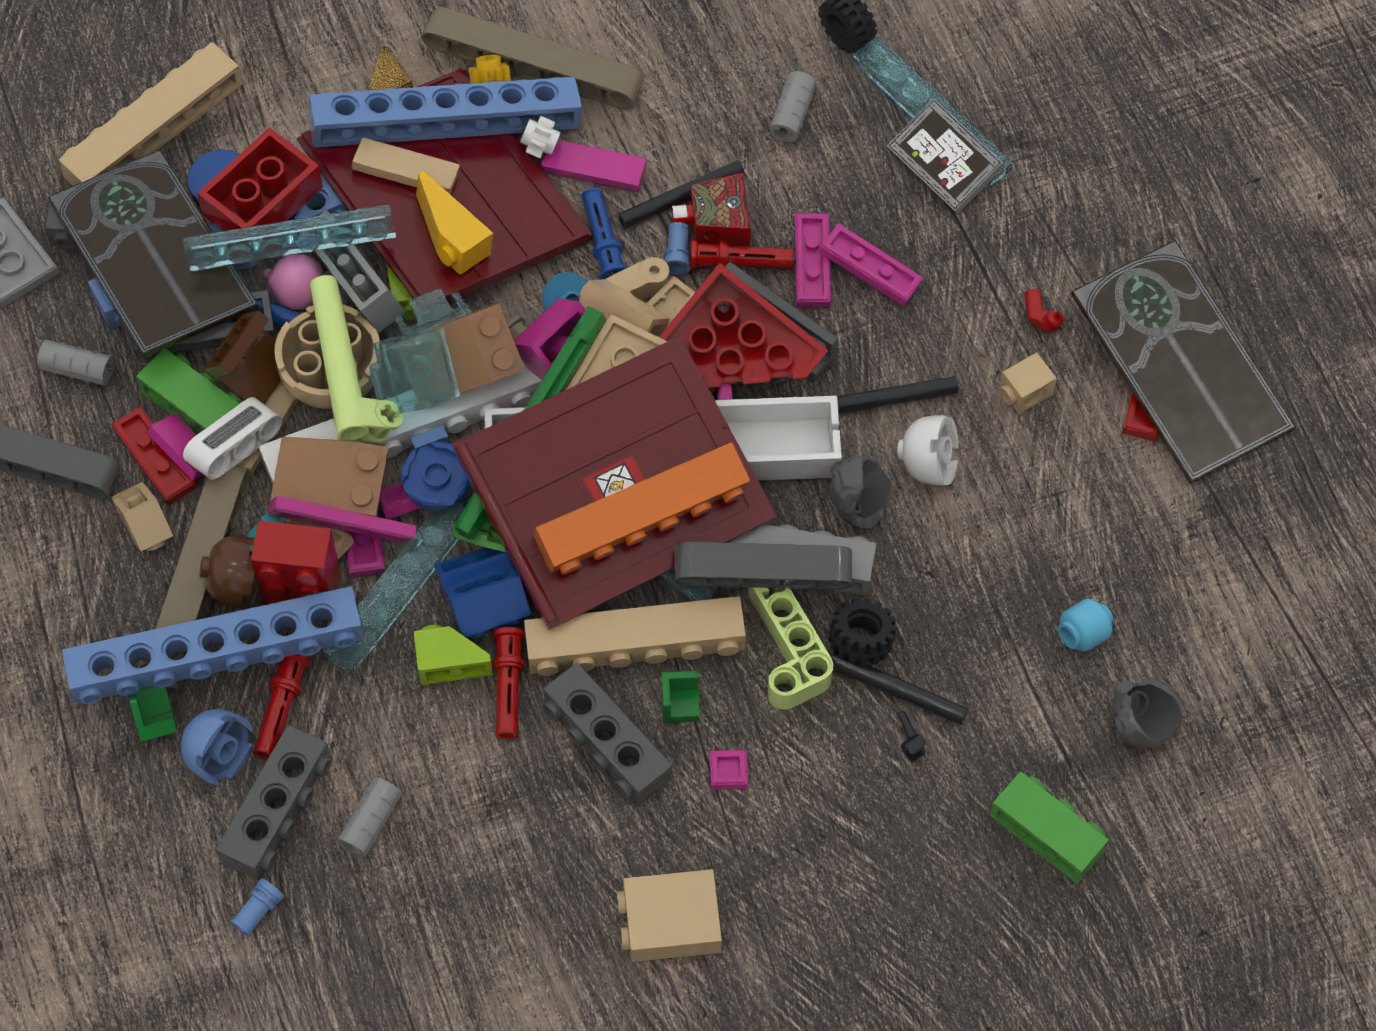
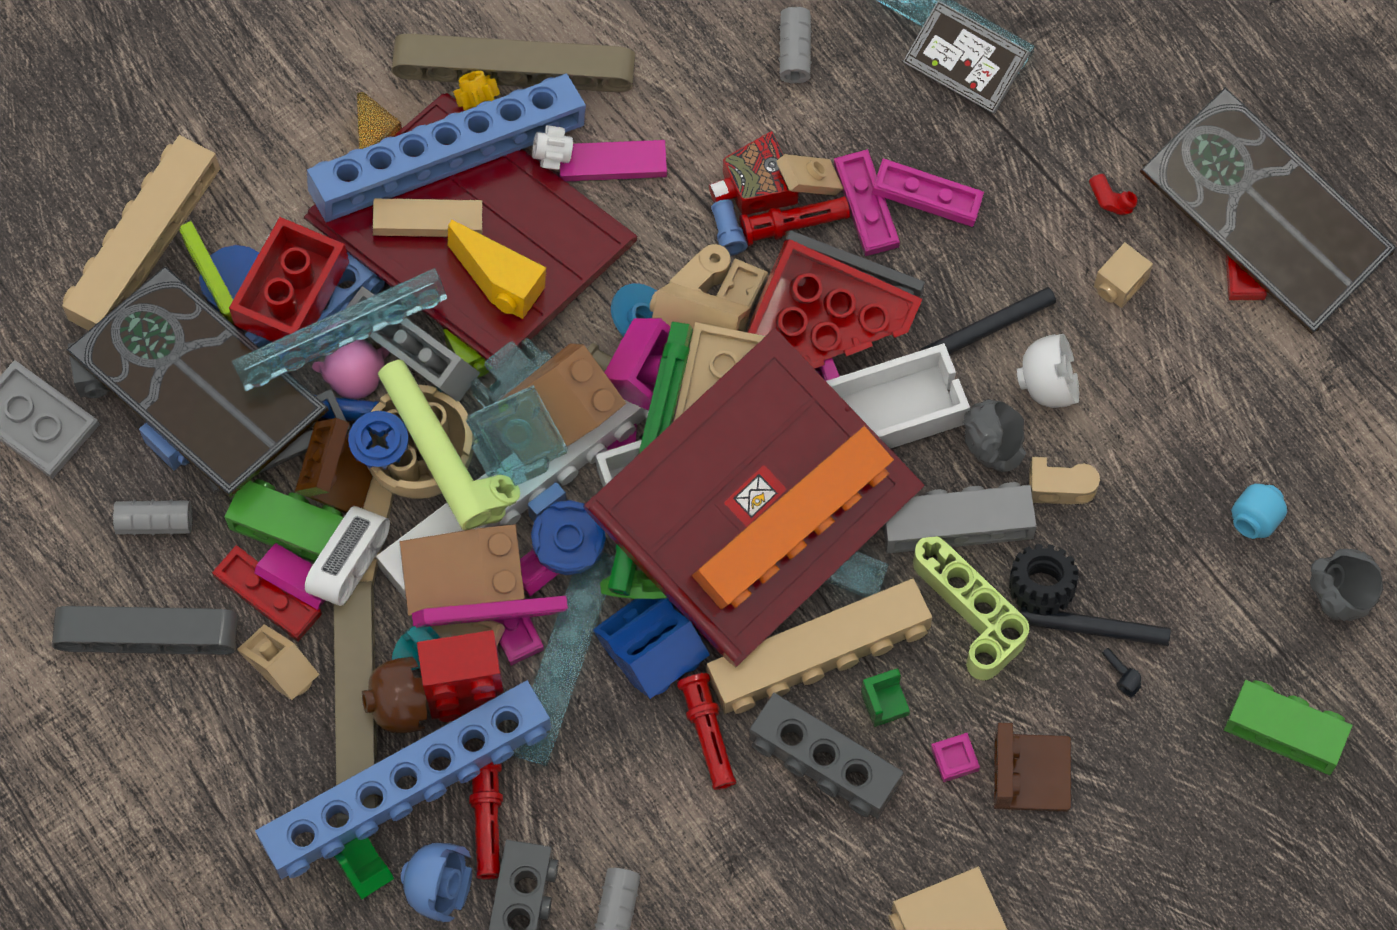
camera: 15 degrees left, 5 degrees up
(195, 156) = (207, 269): none -> lime tile
(296, 328) = (381, 424): none -> blue gear
(448, 656) = (639, 720): lime slope -> none
(595, 204) = (656, 246): blue pin -> none
(673, 197) = (709, 170): black piece -> none
(763, 565) = (929, 541): dark grey beam -> none
(765, 220) = (809, 175): none -> tan plate
(793, 800) = (1031, 771): none -> reddish brown bracket
(908, 553) = (1062, 484): none -> tan leg

